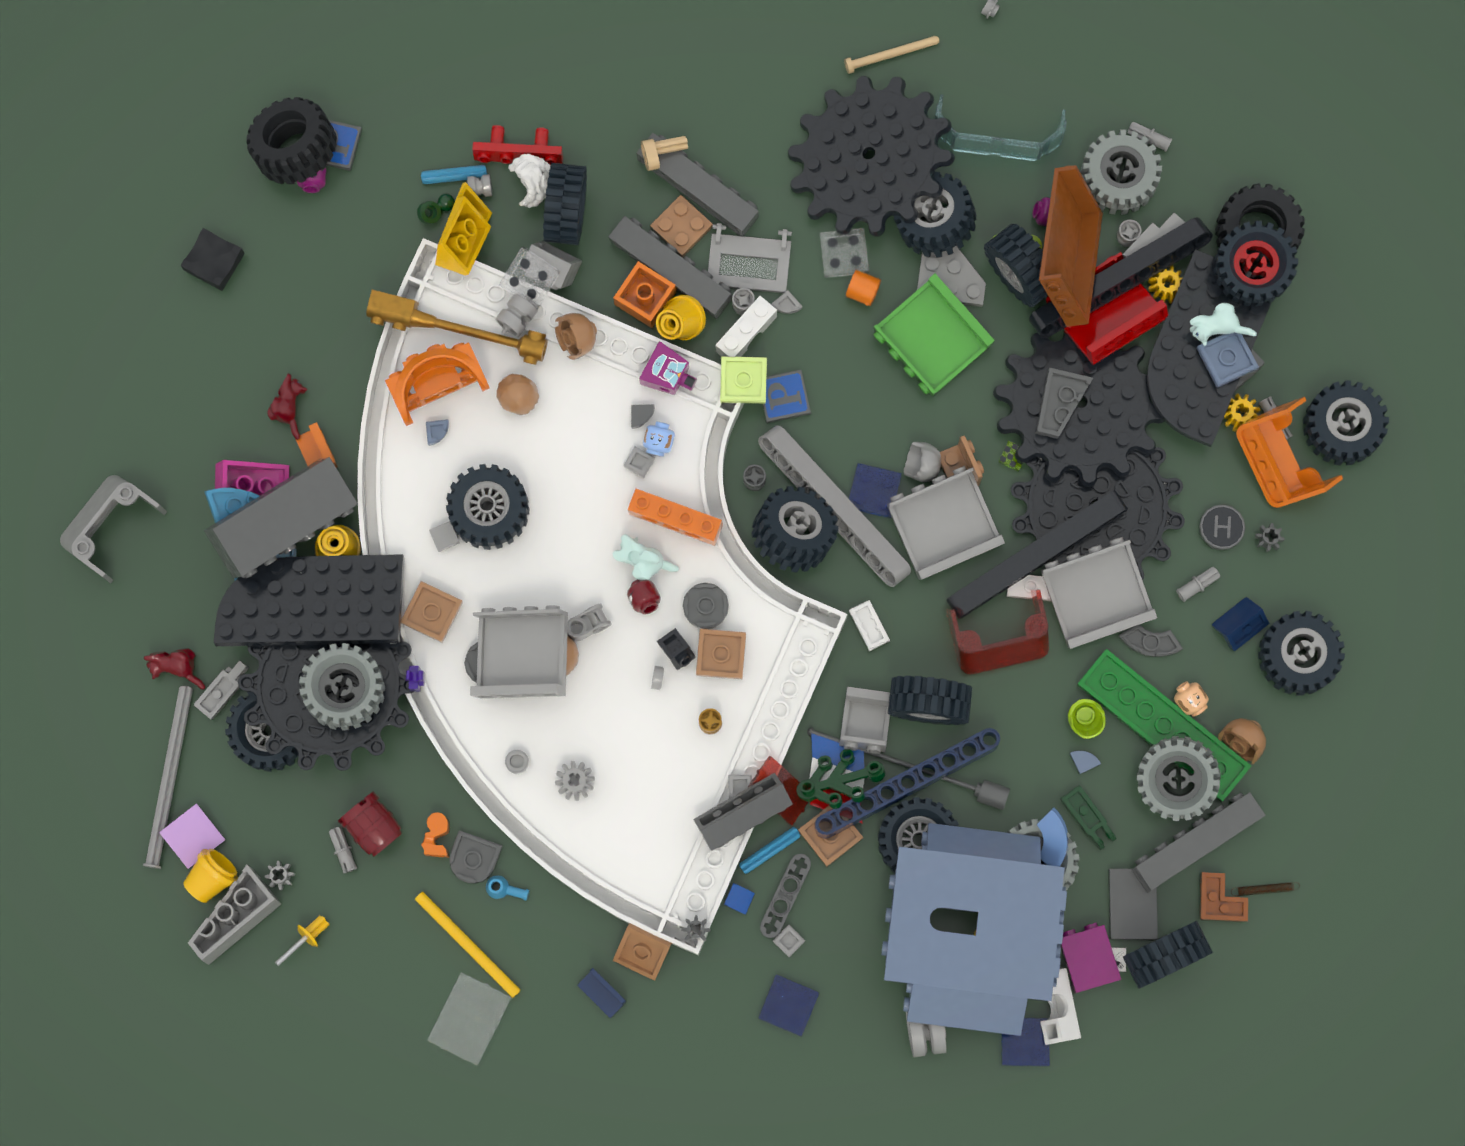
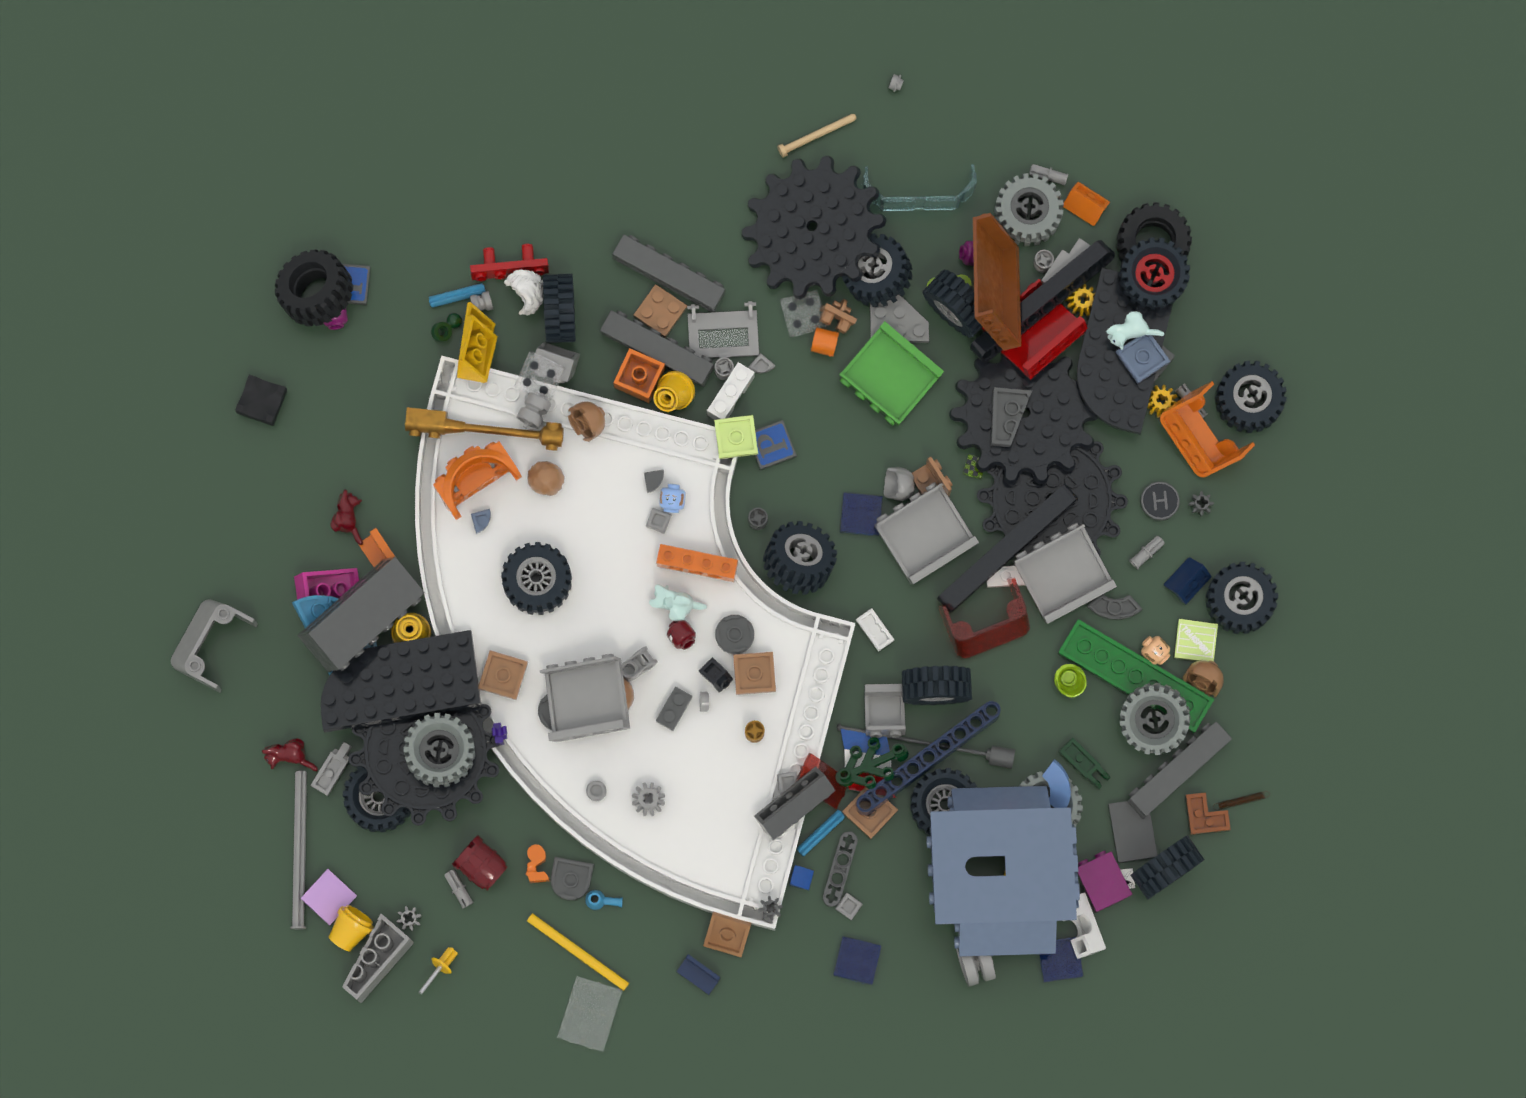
camera: 15 degrees left, 0 degrees up
(444, 536) = (502, 609): light grey tile -> none
(622, 680) = (674, 708): none -> dark grey plate
(652, 149) = (626, 249): tan piece -> none
(667, 371) = (670, 439): magenta torso -> none
(852, 523) = (848, 546): light grey beam -> none
(886, 259) = (830, 312): none -> medium nougat hips
(1084, 761) = (1073, 716): sand blue tile -> none
(1187, 175) = (1085, 203): none -> orange panel
(1239, 694) = (1195, 640): none -> yellowish green tile

